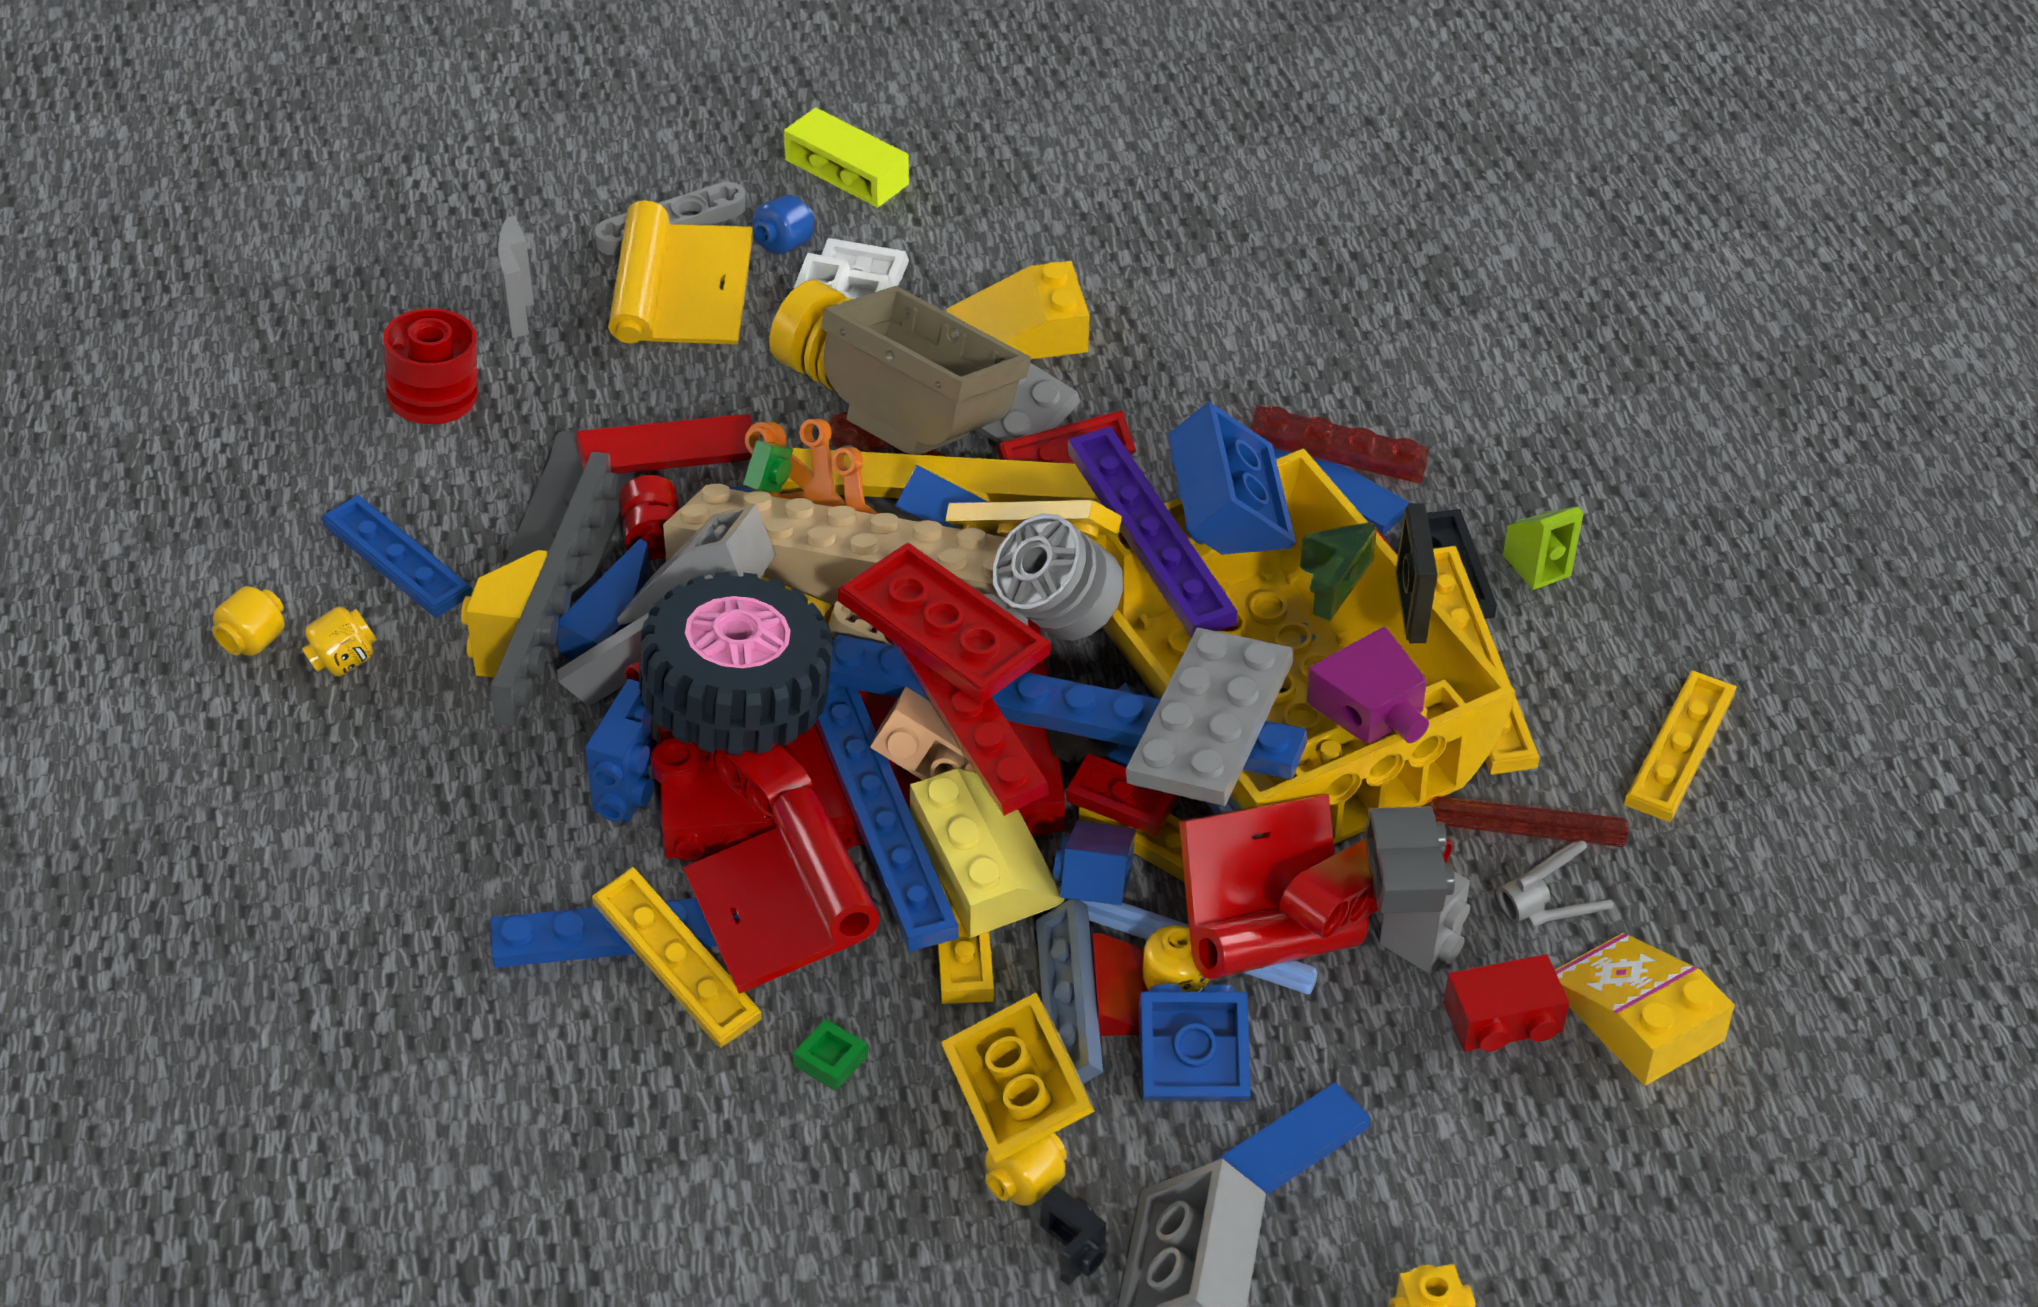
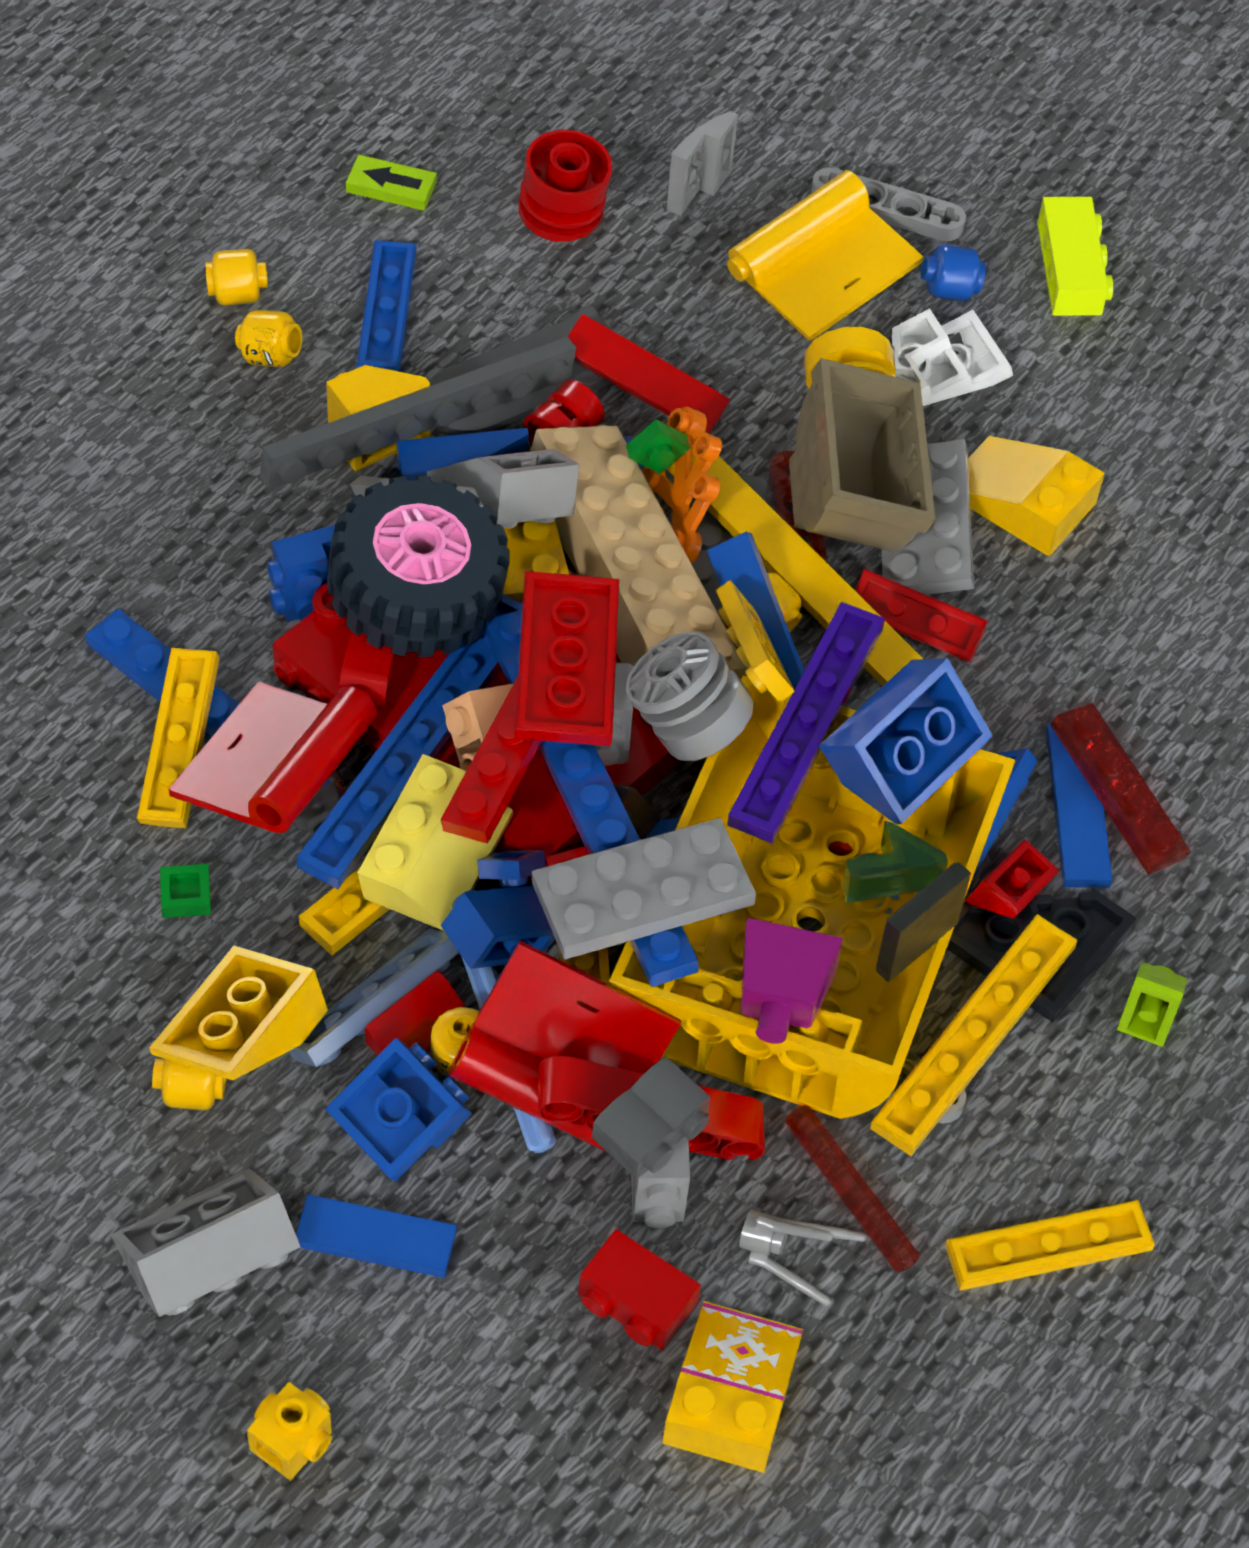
camera: 45 degrees right, 10 degrees up
(273, 470) = (391, 182): none -> lime tile
(1053, 816) = (511, 866): none -> blue plate
(1078, 1228) = (171, 1141): black bracket -> none

